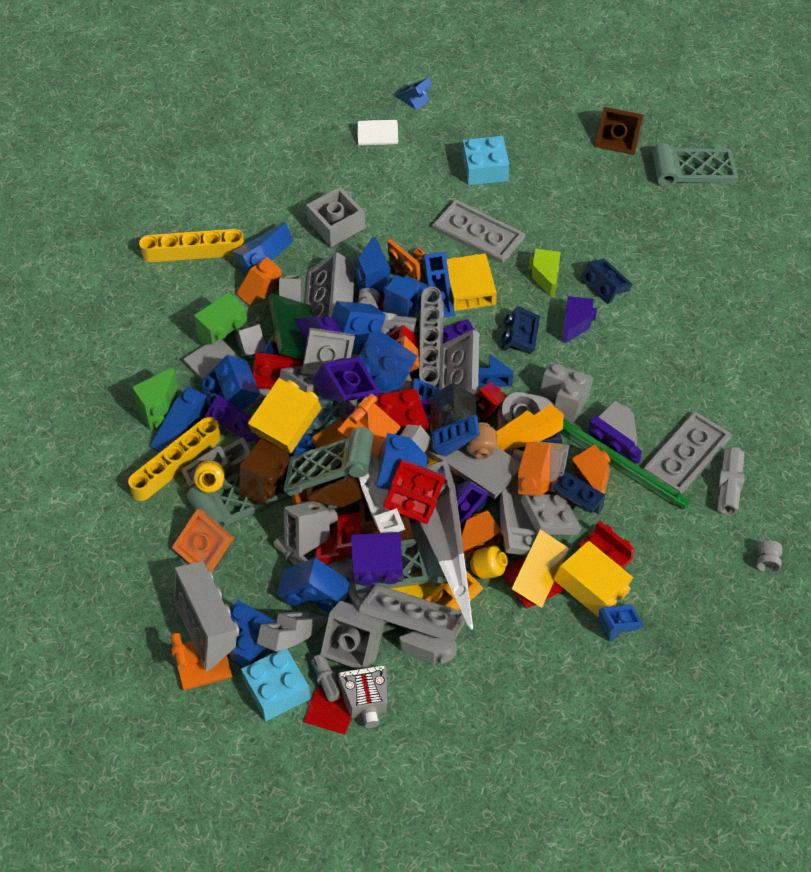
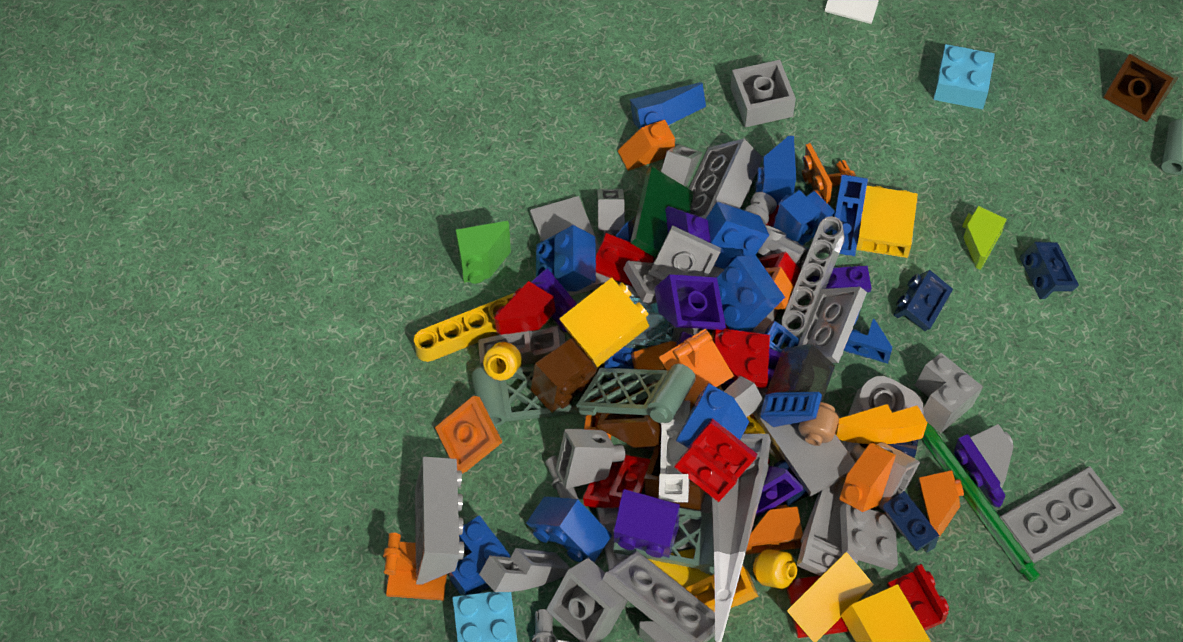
camera: 20 degrees right, 5 degrees up
(183, 415) = (500, 280): blue slope -> none
(190, 245) = (588, 77): yellow beam -> none
(214, 431) = (525, 311): none -> red slope
(219, 319) = (583, 178): bright green slope -> none
(478, 231) = (923, 161): light grey tile -> none
(488, 400) = (850, 374): red slope -> none
(578, 317) = (996, 305): dark purple slope -> none
(731, 481) = (1098, 568): light grey piece -> none

